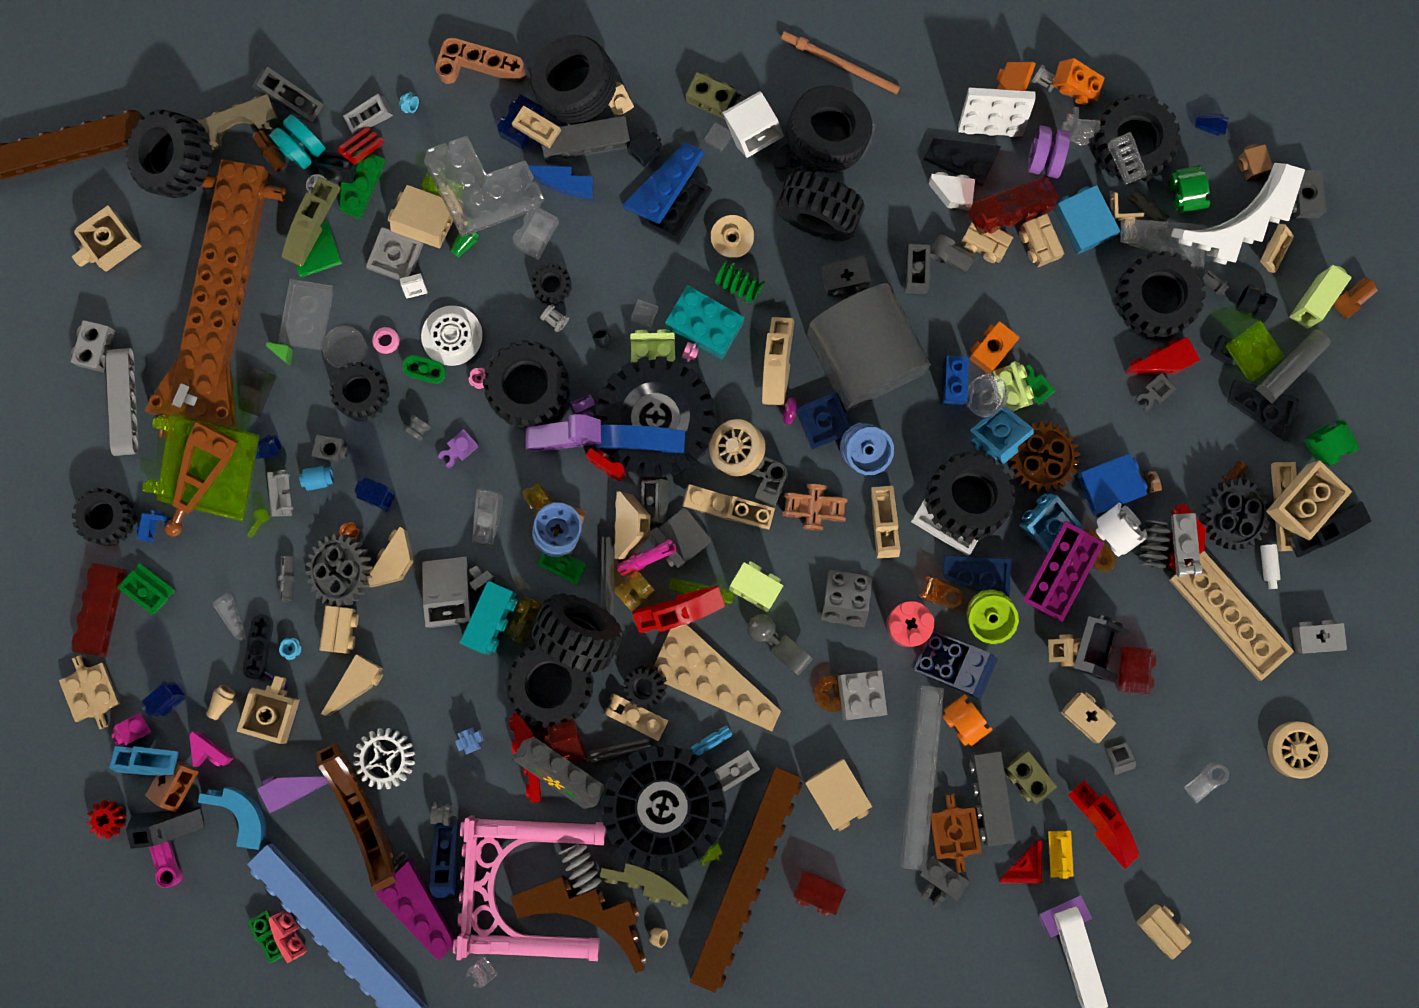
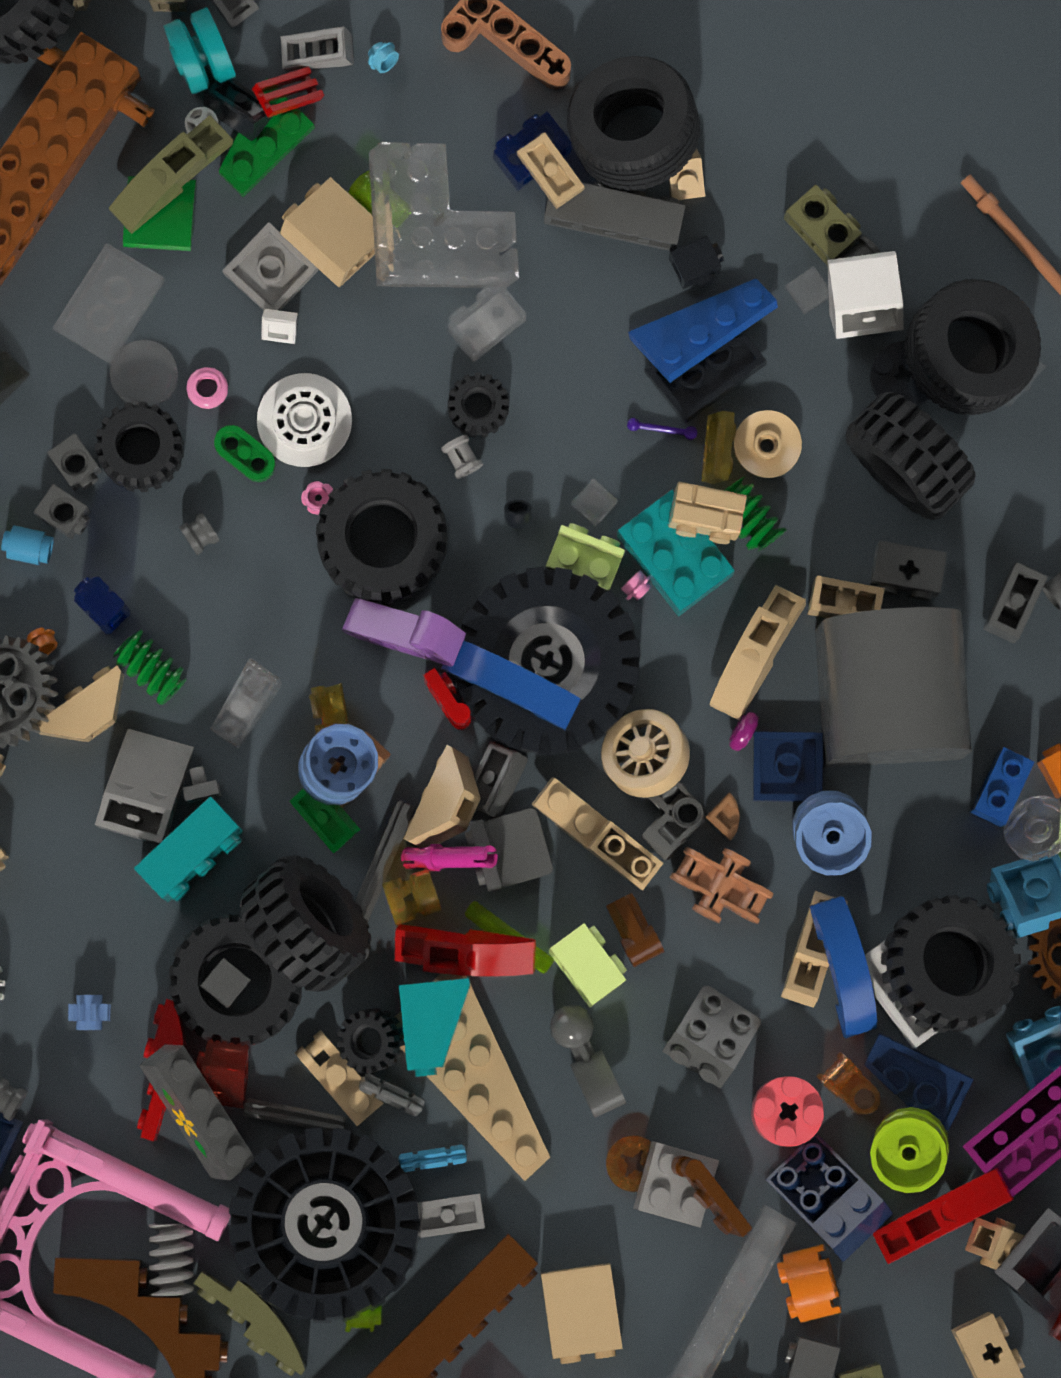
camera: 20 degrees right, 0 degrees up
(269, 151) = (153, 44): reddish brown axle -> none
(282, 351) = (53, 342): bright green slope -> none
(318, 410) = (65, 452): none -> dark grey brick
(420, 520) = (149, 667): none -> green piece
(461, 446) = (251, 585): medium lavender plate -> none
(462, 244) = (373, 295): green cone -> none
(518, 626) = (225, 878): clear yellow hinge -> none
(543, 688) = (225, 982): none -> dark grey tile
(563, 181) = (557, 263): blue slope -> none
(583, 404) = (451, 599): medium lavender tile -> none
(671, 713) = (391, 1094): none -> dark grey axle
(675, 660) = (430, 1021): none -> teal slope
(683, 249) = (689, 433): none -> dark purple hinge
(702, 245) = (718, 445): none -> clear yellow plate
(714, 289) = (707, 512): none -> tan brick
(779, 559) = (638, 937): none -> reddish brown piece
(800, 466) = (725, 816): none -> medium nougat tile
(809, 308) = (839, 597): none -> tan brick
(886, 693) = (711, 1195): none -> reddish brown plate
(909, 522) = (847, 966): none -> blue slope
(1028, 647) = (942, 1215): none -> red slope

